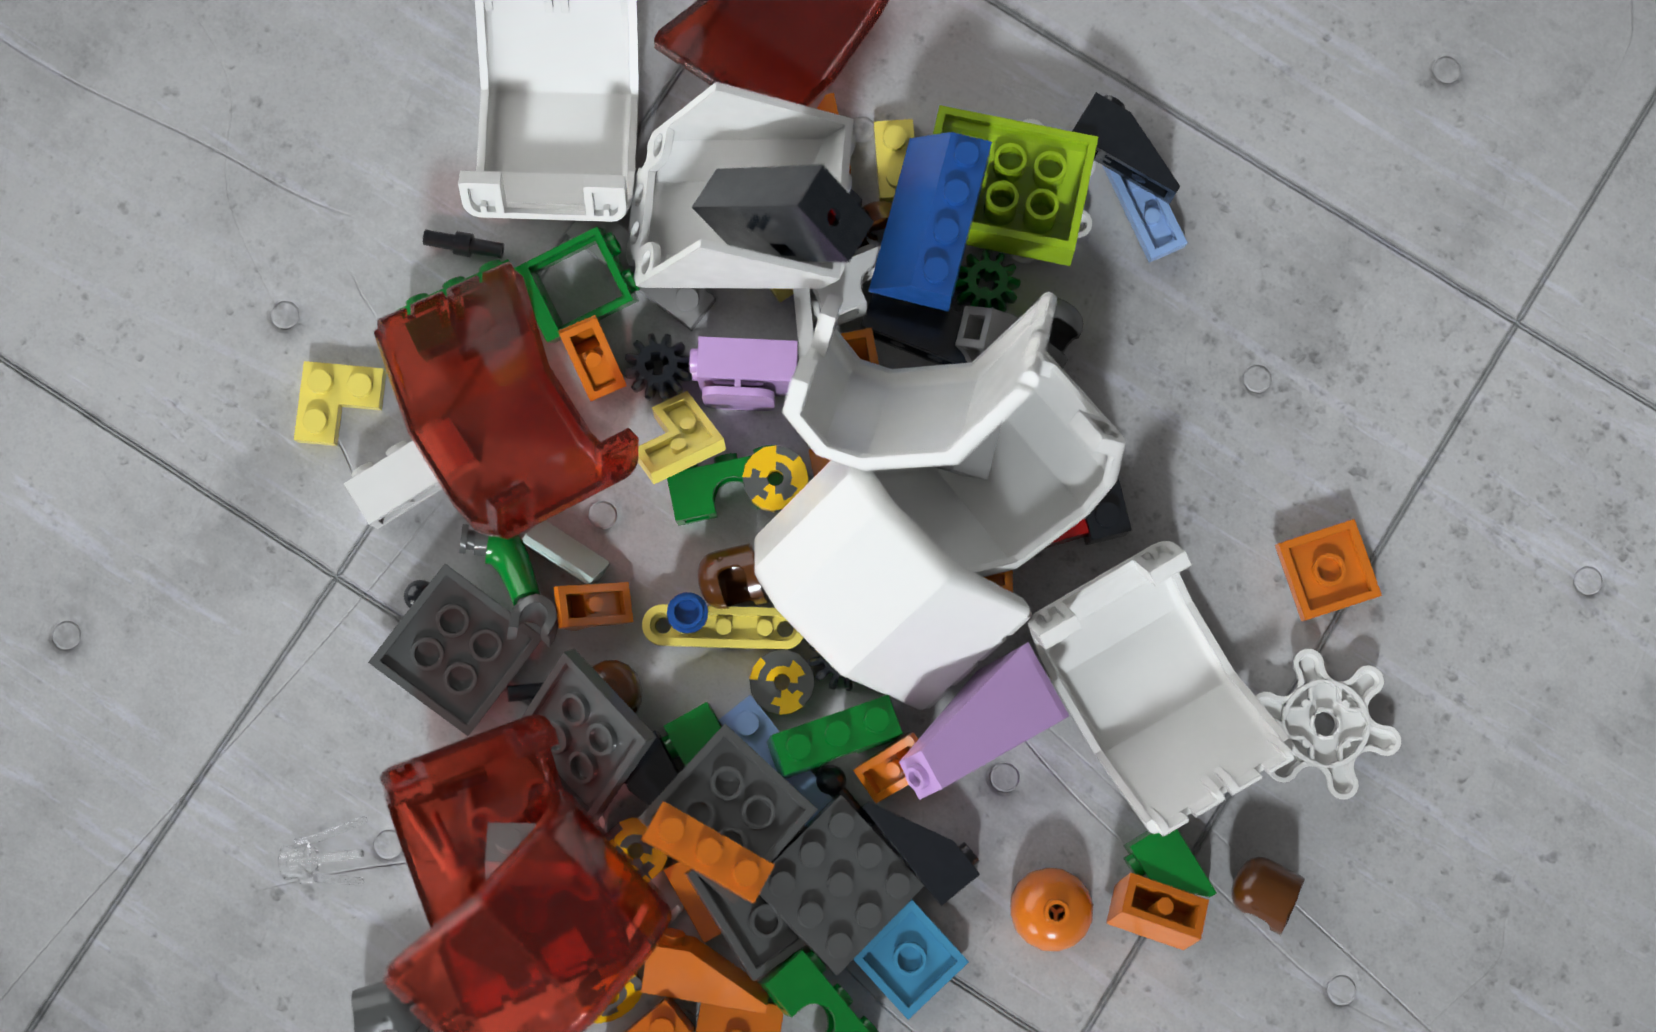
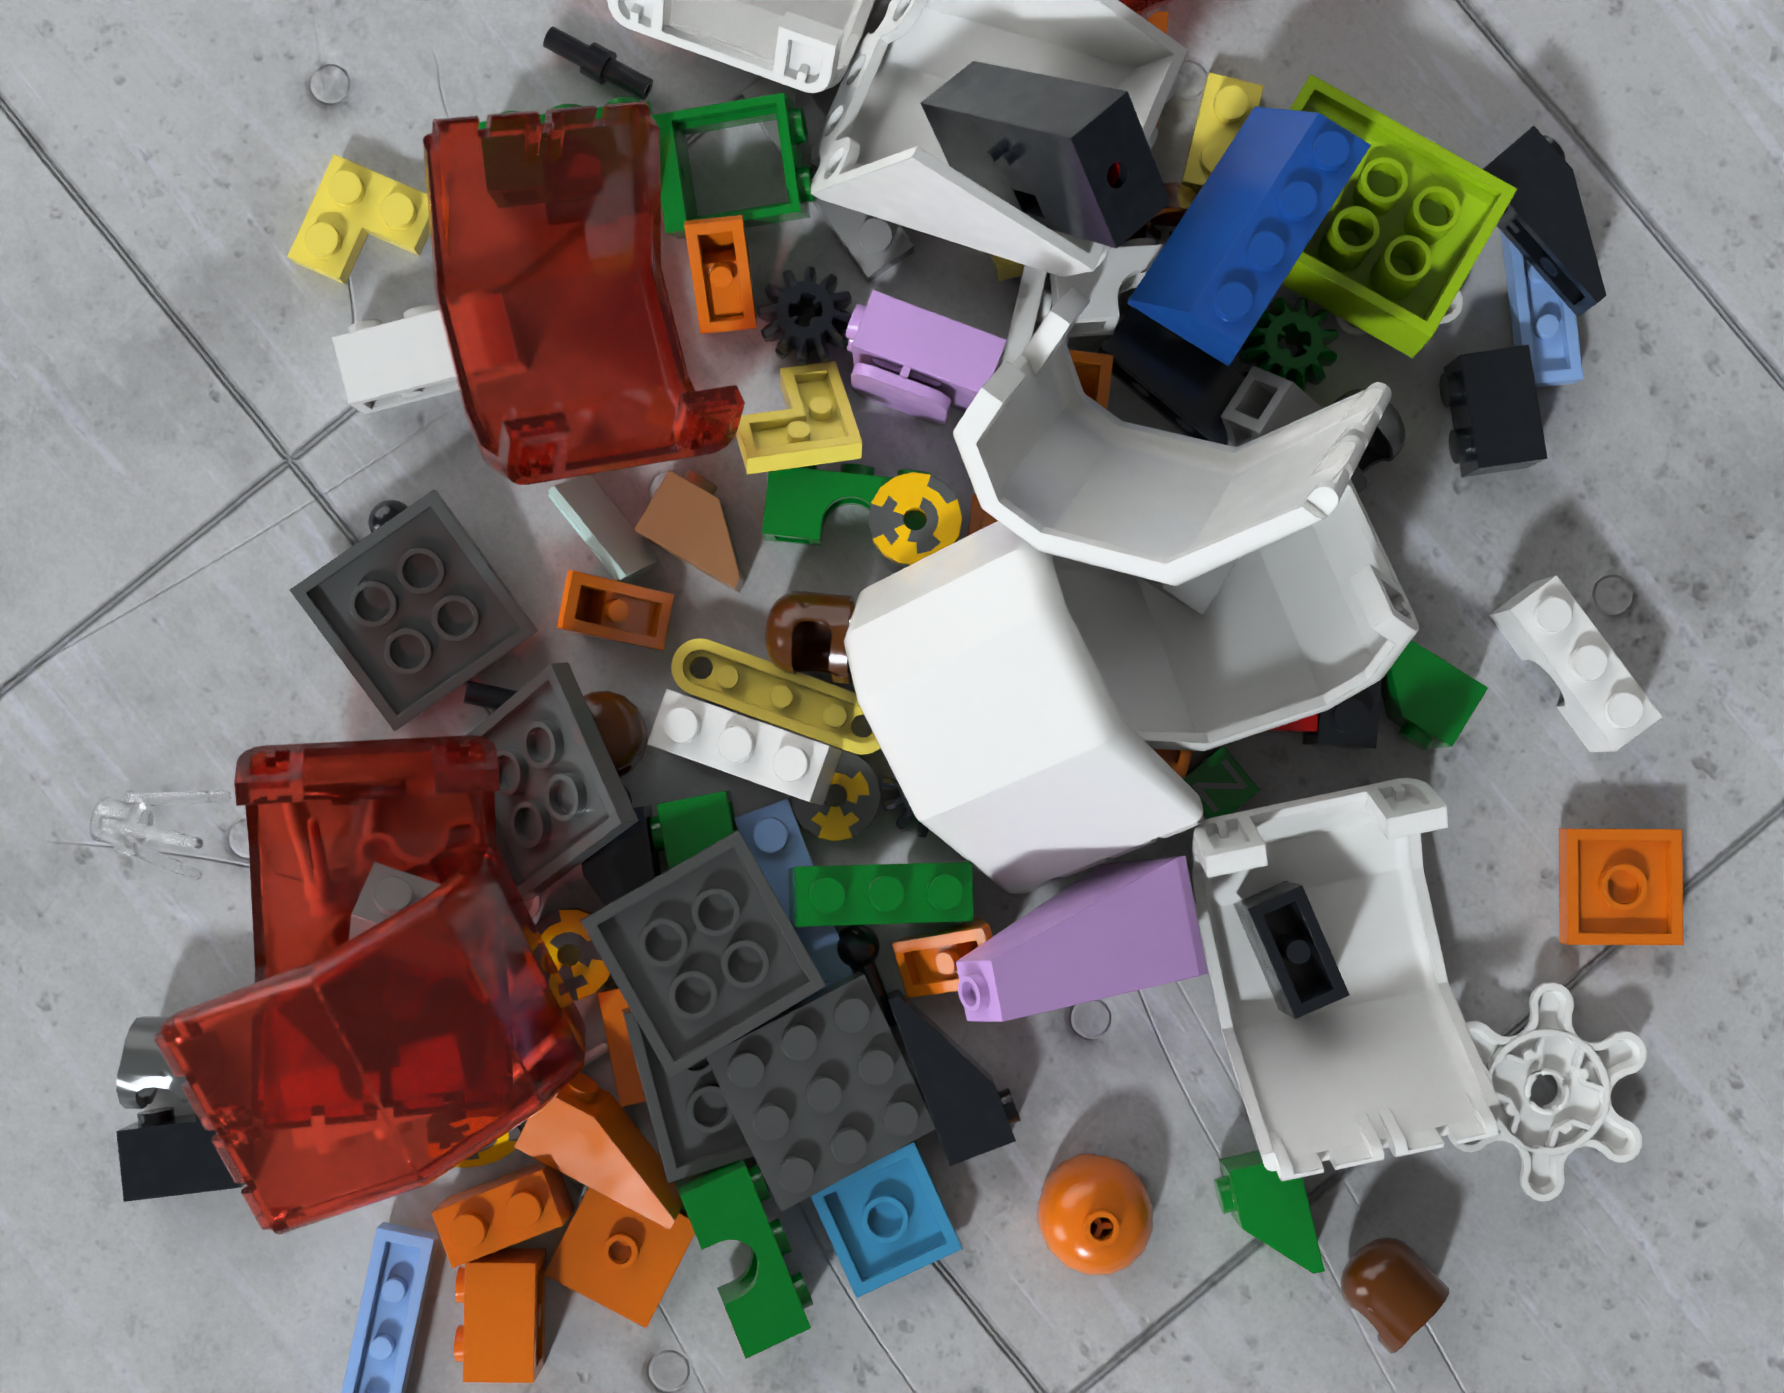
camera: 20 degrees right, 5 degrees up
(515, 568) = (527, 530): piece -> none
(627, 533) = (693, 527): none -> medium nougat slope
(687, 612) = (738, 662): blue plate -> none
(707, 852) = (658, 998): orange plate -> none
(710, 668) = (744, 747): none -> white brick
(1038, 588) = (1220, 783): none -> green tile
(1121, 683) = (1291, 949): none -> black brick
(1135, 283) = (1493, 411): none -> black brick
(1155, 485) = (1429, 698): none -> green slope
(1157, 911) = (1236, 1268): orange brick -> none
(1266, 444) = (1598, 690): none -> white arch

